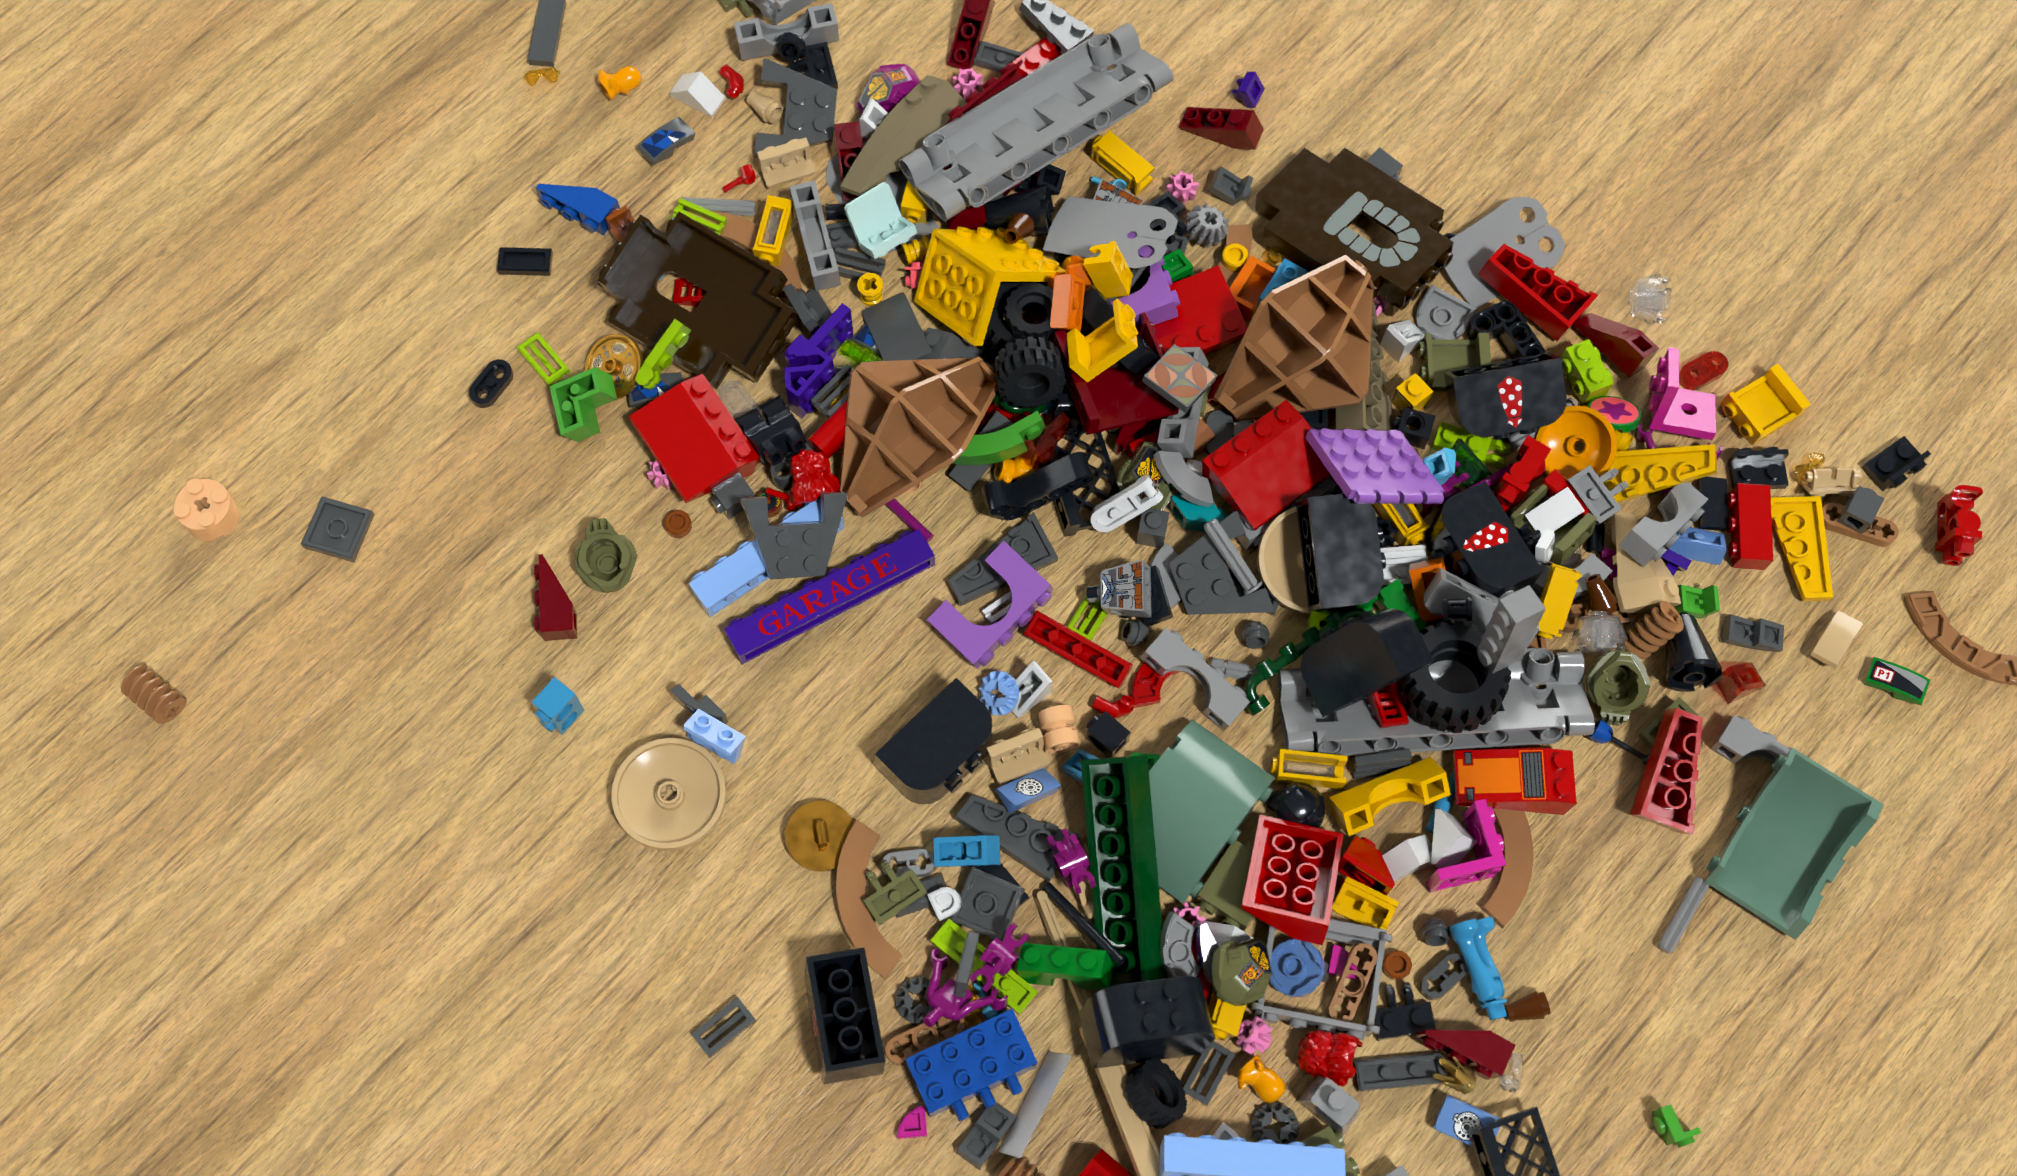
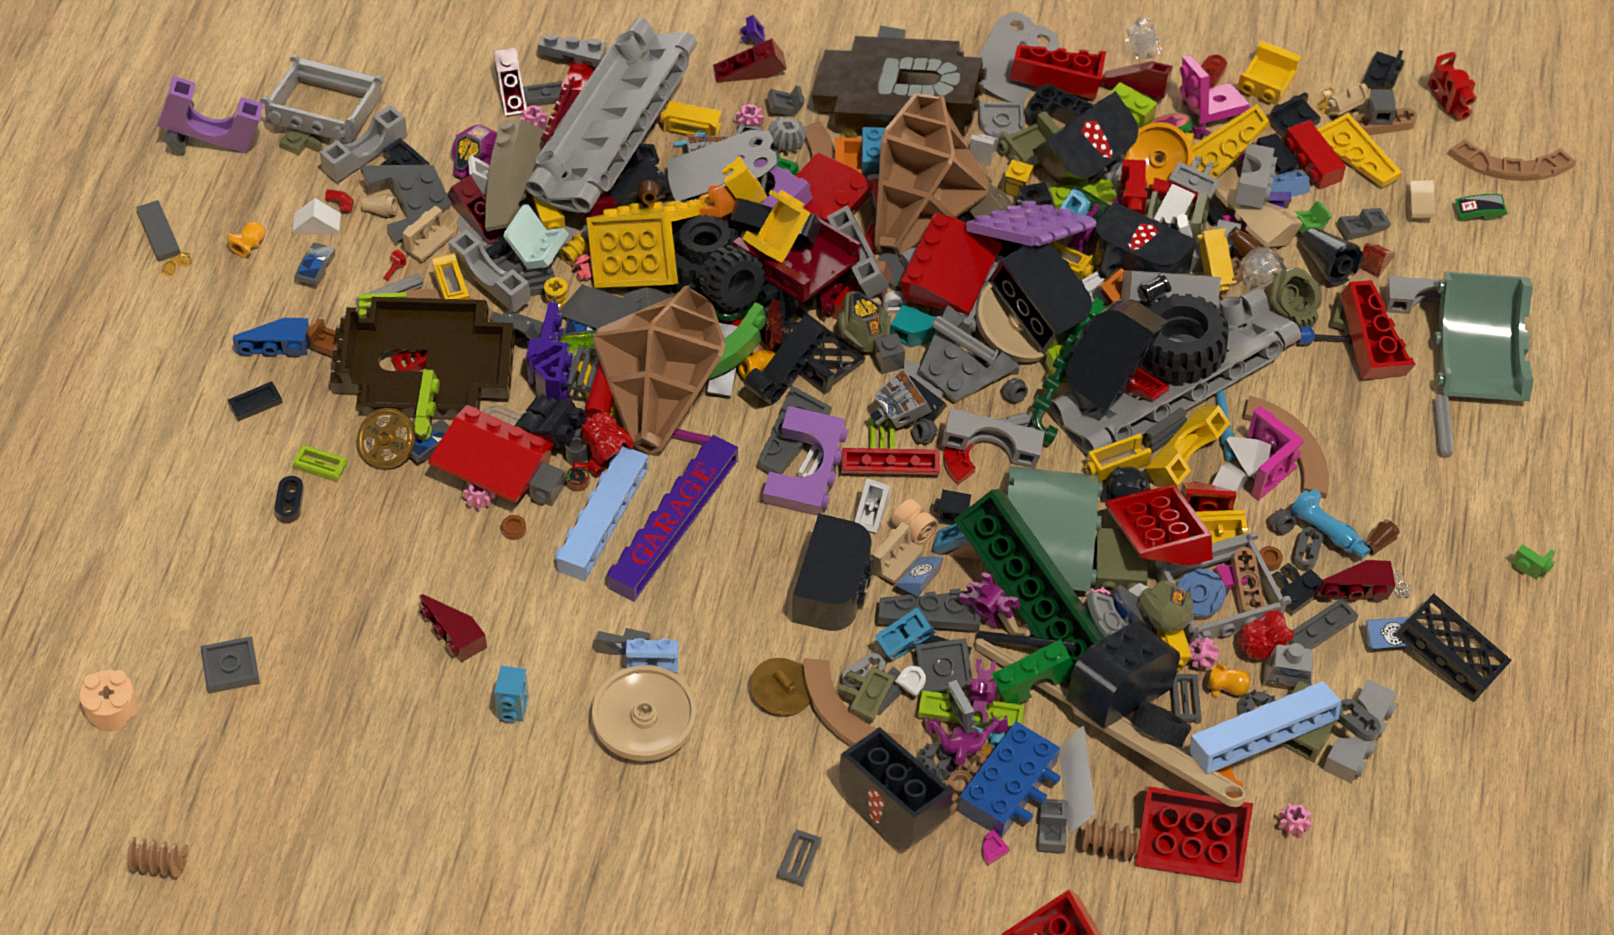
camera: 30 degrees left, 15 degrees down
(576, 402) = (374, 469): bright green brick -> none
(604, 557) = (475, 572): olive helmet -> none
(791, 46) = (375, 151): black hat -> none
(795, 548) = (626, 490): dark grey wing -> none
(1006, 685) = (855, 509): light blue gear -> none
(1067, 302) = (728, 216): orange slope -> none
(1115, 709) = (950, 484): red arm -> none
(1125, 505) = (861, 342): white plate -> none
(1179, 378) = (849, 229): tile -> none
(1189, 484) = (896, 304): light grey tile -> none
(1234, 257) = (823, 145): yellow tile -> none
(1462, 1080) = (1368, 607): pearl gold piece -> none
(1510, 628) = (1208, 268): light grey brick -> none
(1516, 779) = (1276, 386): slope -> none
(1654, 630) = (1297, 246): medium nougat piece -> none

